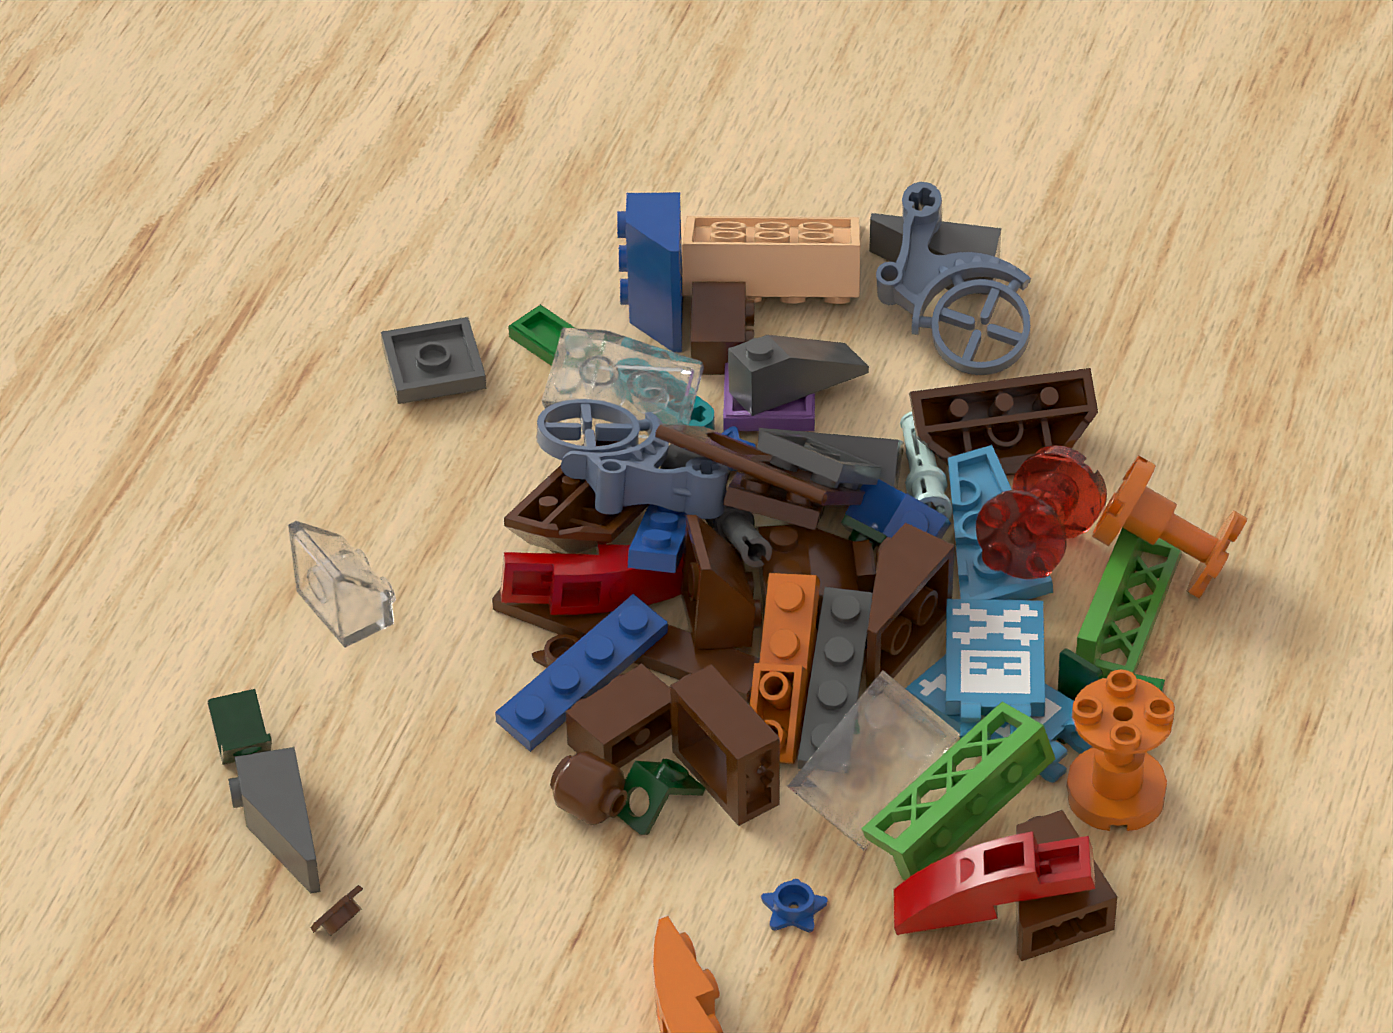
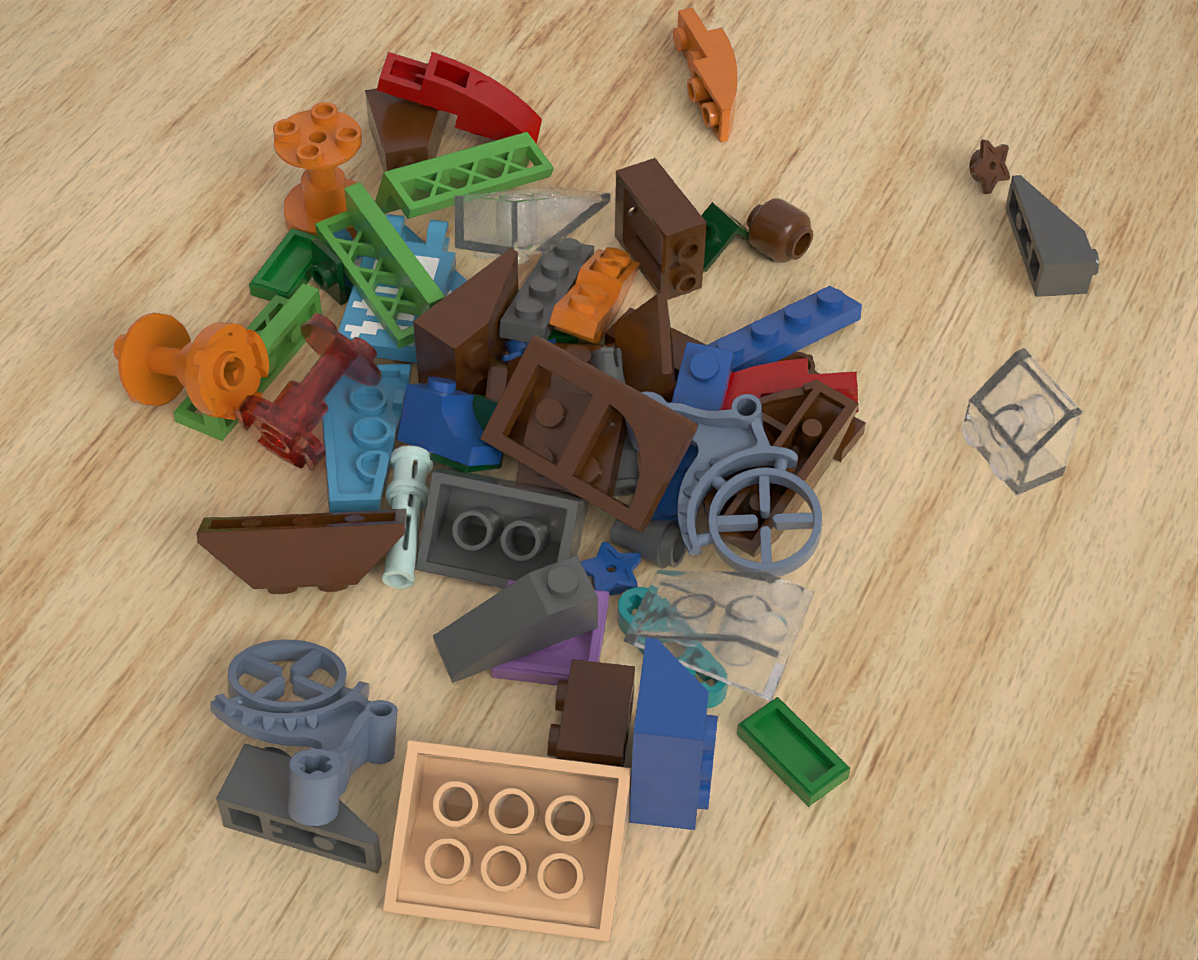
camera: 175 degrees left, 5 degrees up
(238, 725) = (1092, 317): dark green bracket -> none
(433, 360) = (940, 723): dark grey plate -> none
(621, 717) = (745, 288): reddish brown brick -> none
(789, 894) = (616, 154): blue plate -> none
(826, 463) = (525, 421): dark grey plate -> none
(1008, 651) = (393, 256): none -> bright green fence

